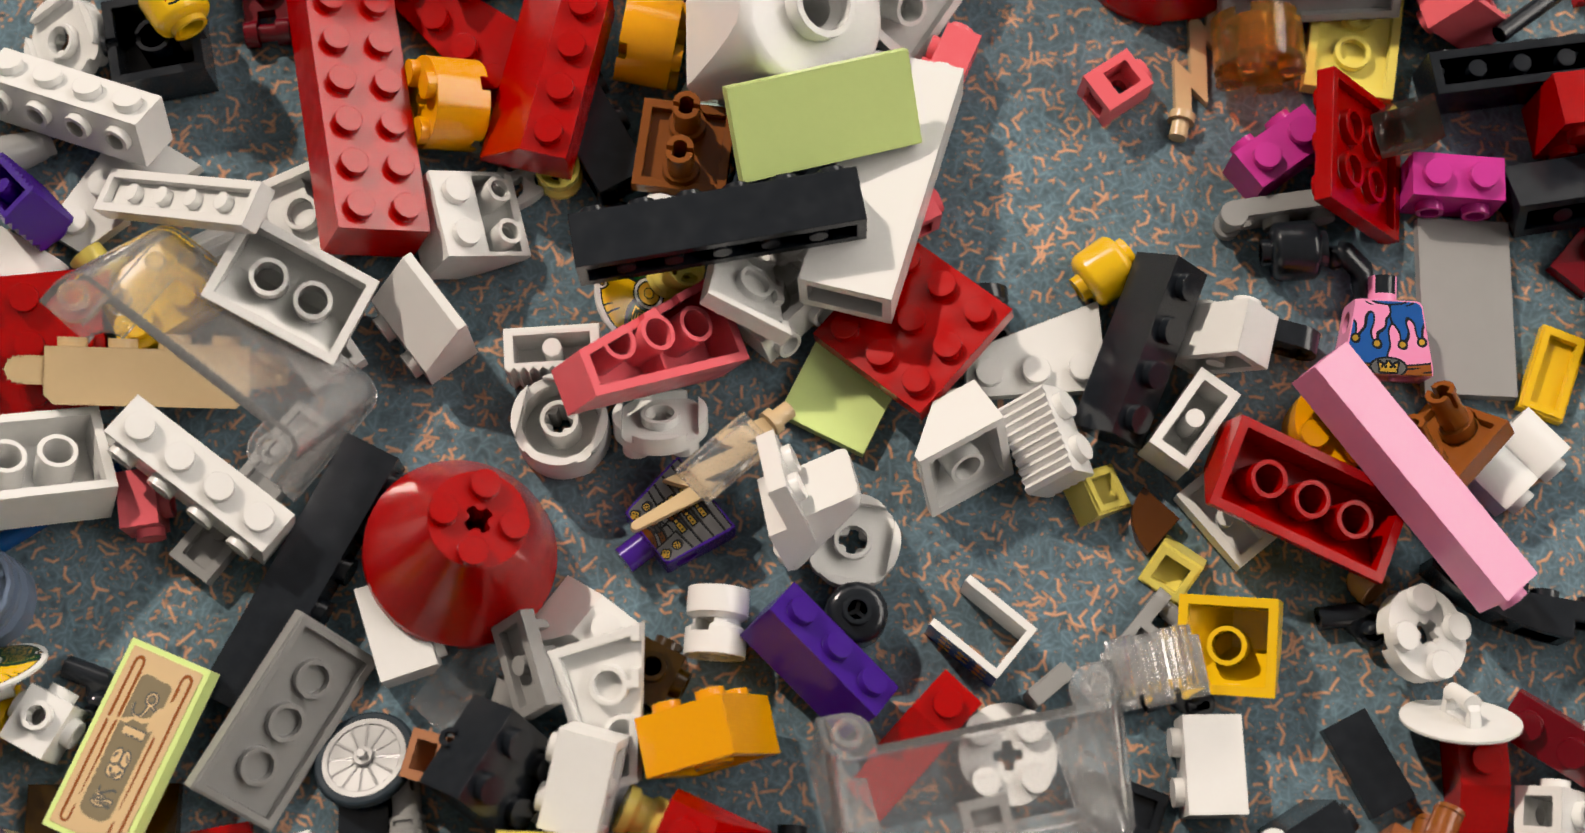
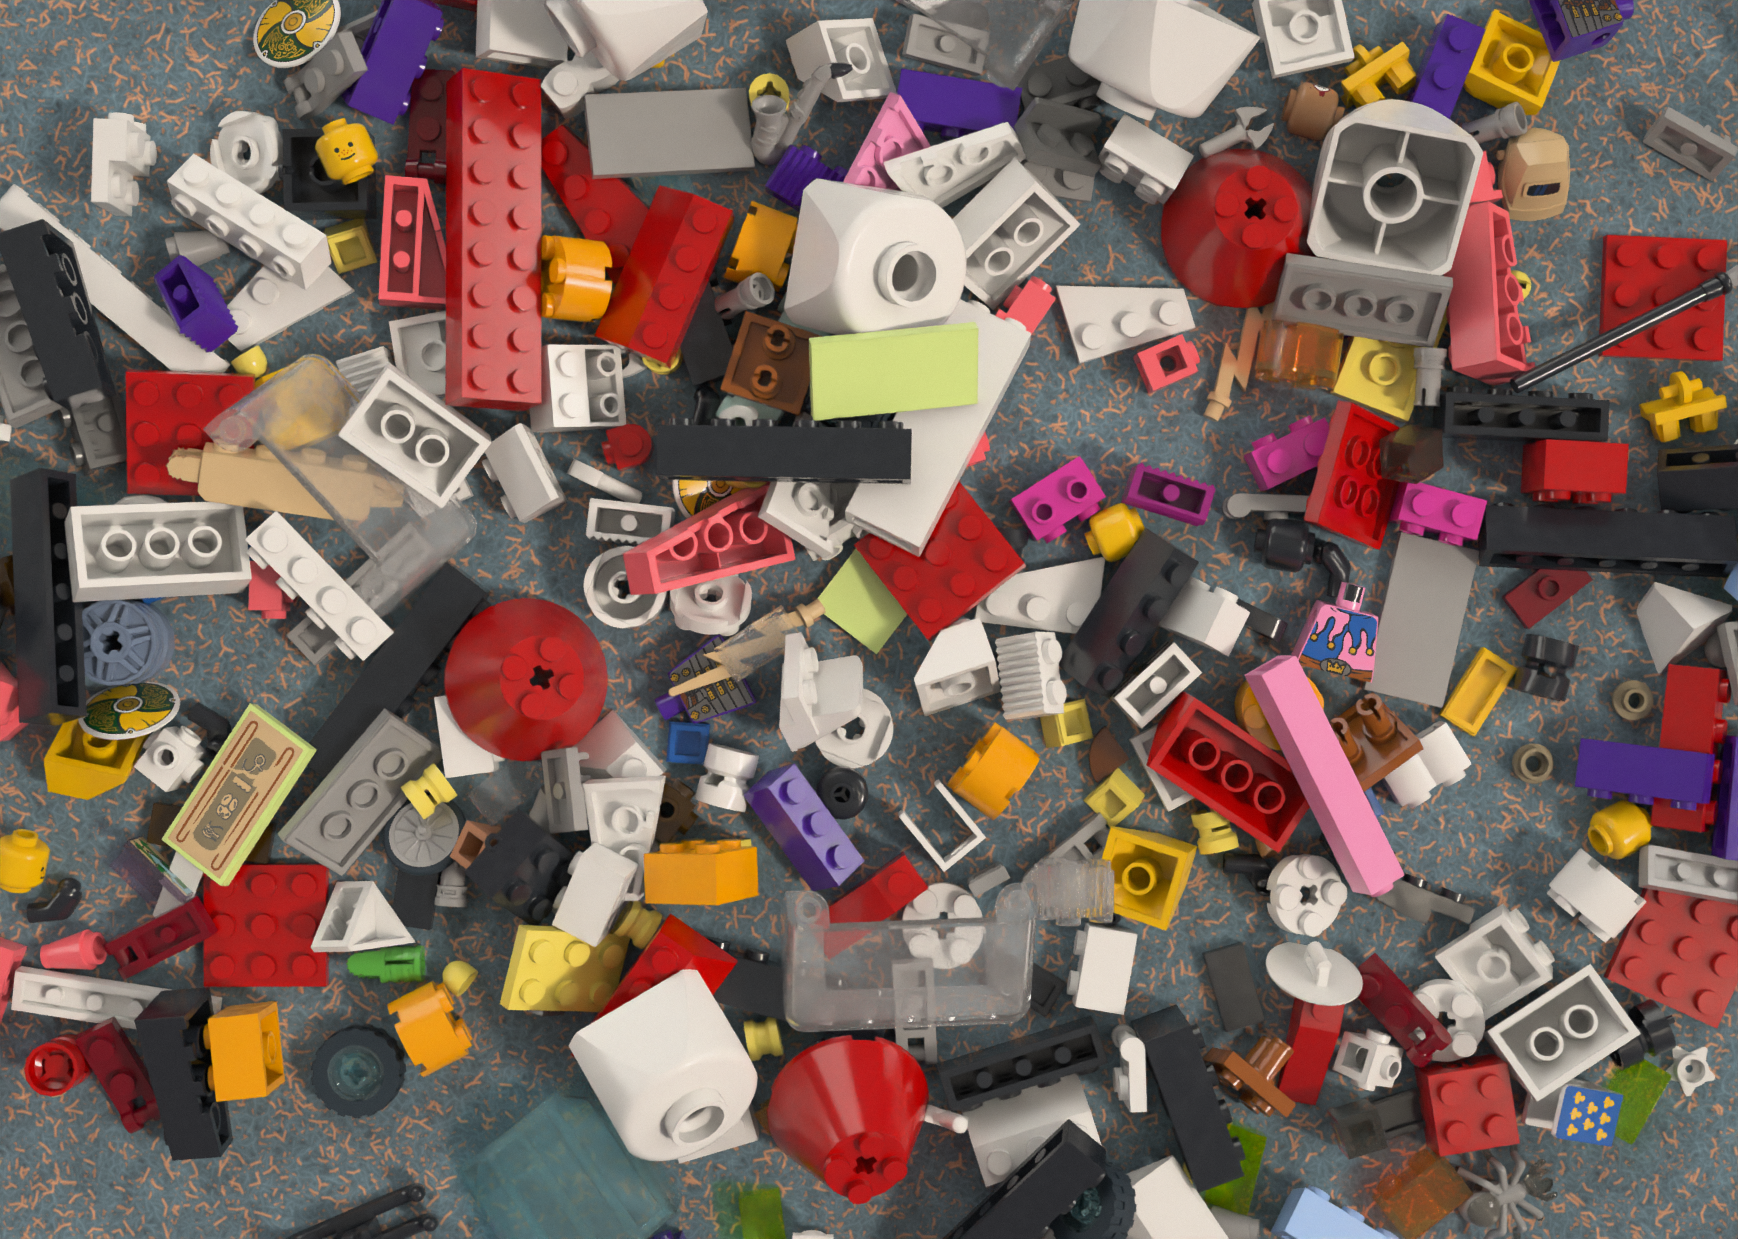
camera: 15 degrees right, 15 degrees up
(185, 200) = (334, 341): white plate -> none
(194, 125) = (350, 245): none -> light yellow slope
(260, 105) = (411, 247): none -> coral wedge
(363, 704) = (437, 785): none -> light yellow wheel
(499, 313) = (604, 482): none -> white bar
(537, 276) = (627, 446): none -> red plate
(646, 80) = (749, 294): none -> light grey pin
(662, 596) = (687, 742): none -> blue tile
(1028, 554) = (994, 771): none -> light orange brick
(1031, 248) = (1058, 499): none -> dark pink brick
(1053, 54) = (1121, 317): none -> white wing
(1154, 217) = (1168, 494): none -> magenta brick
(1299, 591) = (1214, 839): none -> light yellow wheel
(1400, 34) = (1429, 368): none -> light grey pin

